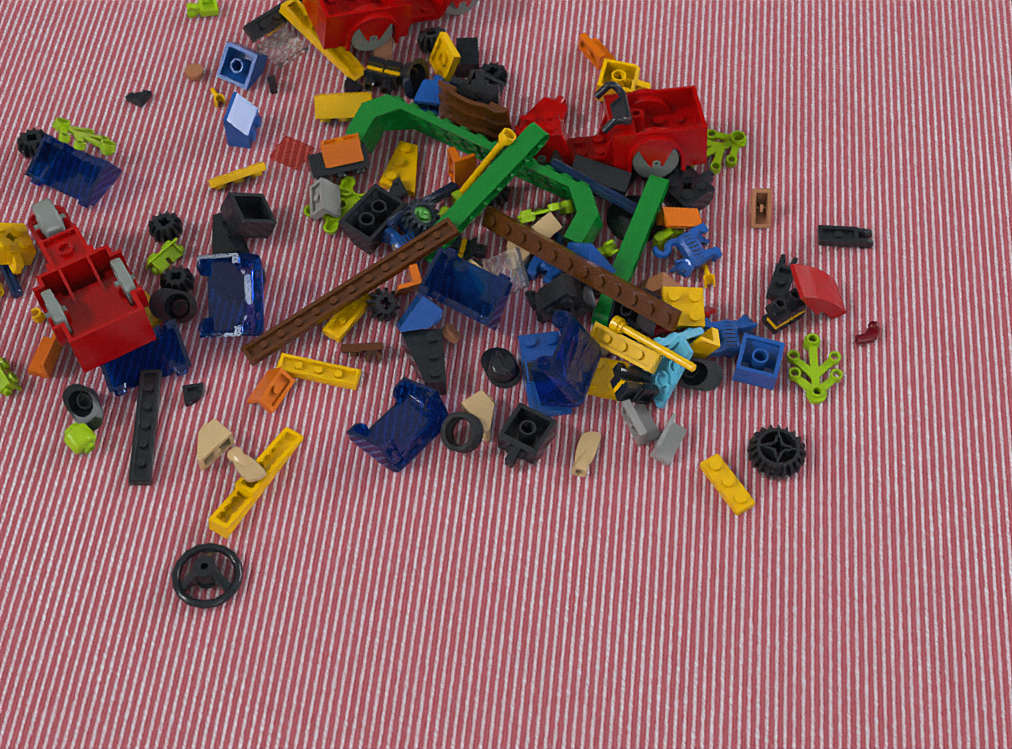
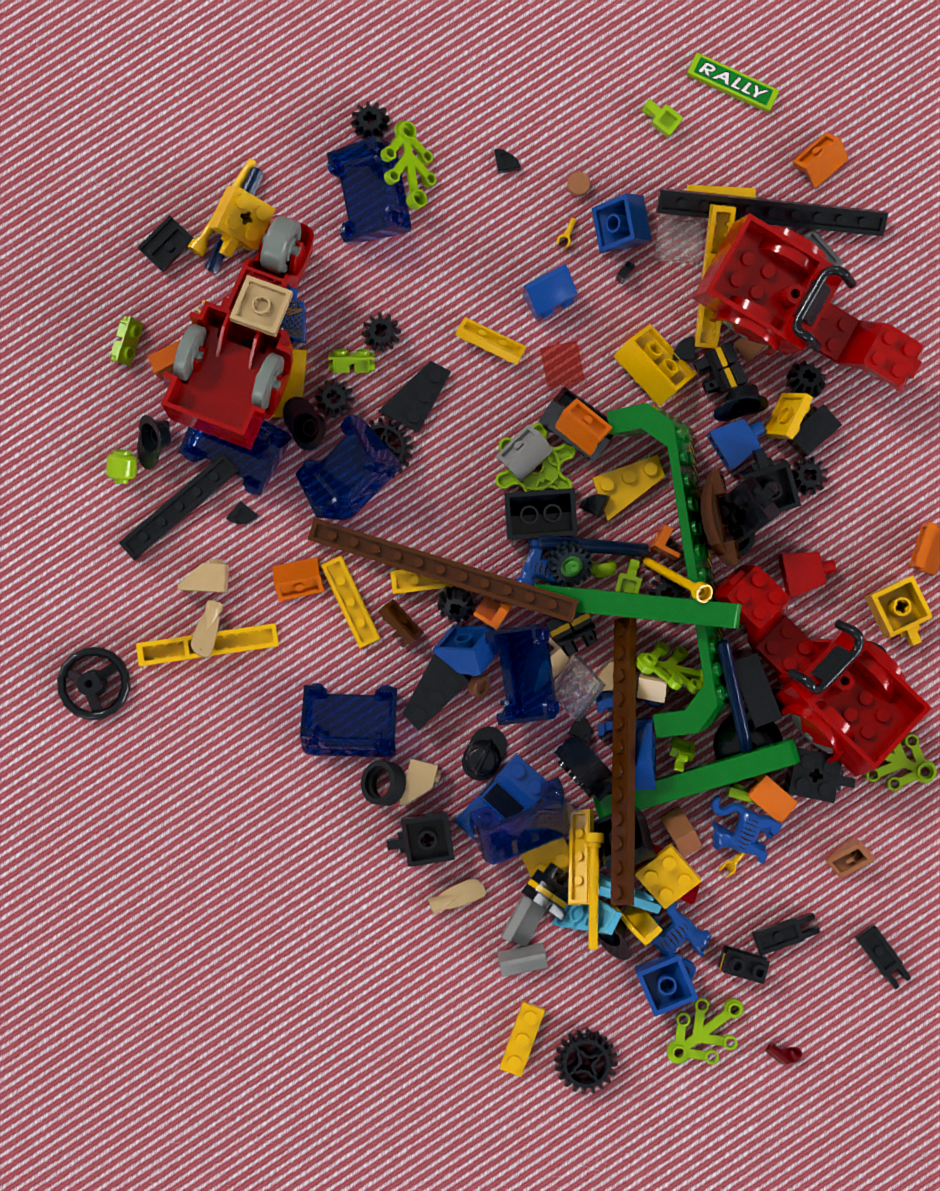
camera: 50 degrees right, 30 degrees up
(75, 243) = (261, 306): none -> tan plate
(248, 215) = (448, 401): black piece -> none
(818, 290) = (786, 984): red slope -> none

